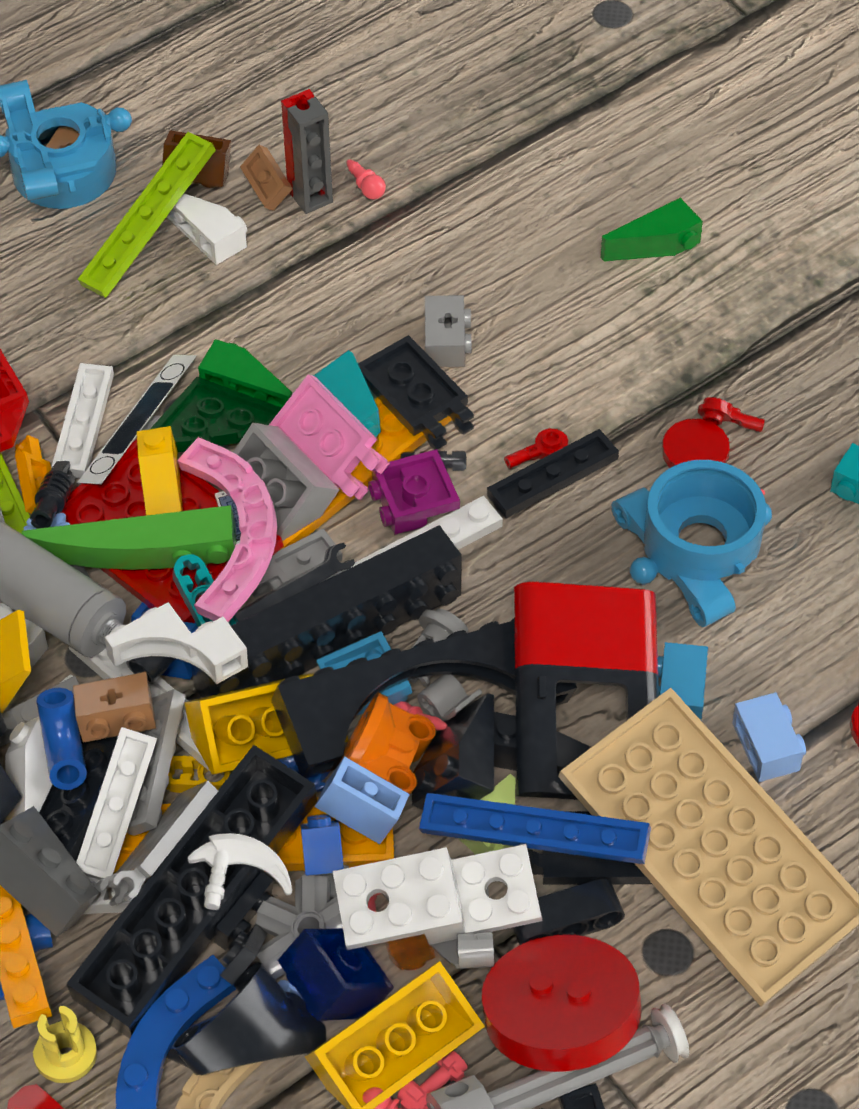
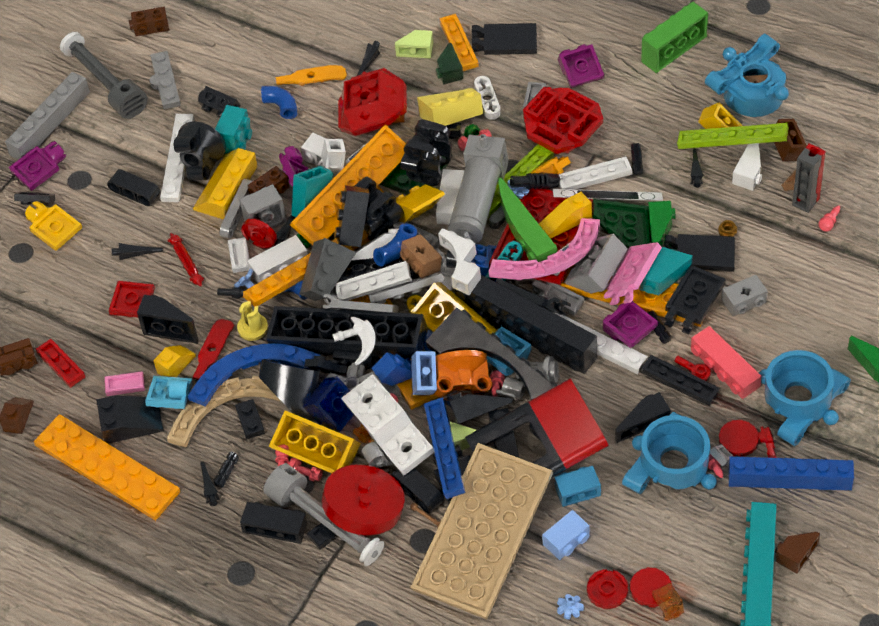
camera: 70 degrees right, 0 degrees up
(87, 354) = (636, 158): none -> black axle
(91, 224) = (717, 117): none -> yellow slope
(172, 295) = (696, 172): none -> black piece
(304, 301) = (727, 228): none -> pearl gold plate
(324, 339) = (708, 251): none -> black tile
(554, 403) = (725, 362): none -> coral brick
(594, 539) = (645, 412): none -> black slope
(652, 914) = (414, 507): none -> medium nougat hinge
(678, 303) = (811, 372): none -> dark azure piece
(799, 408) = (791, 473): none -> blue brick

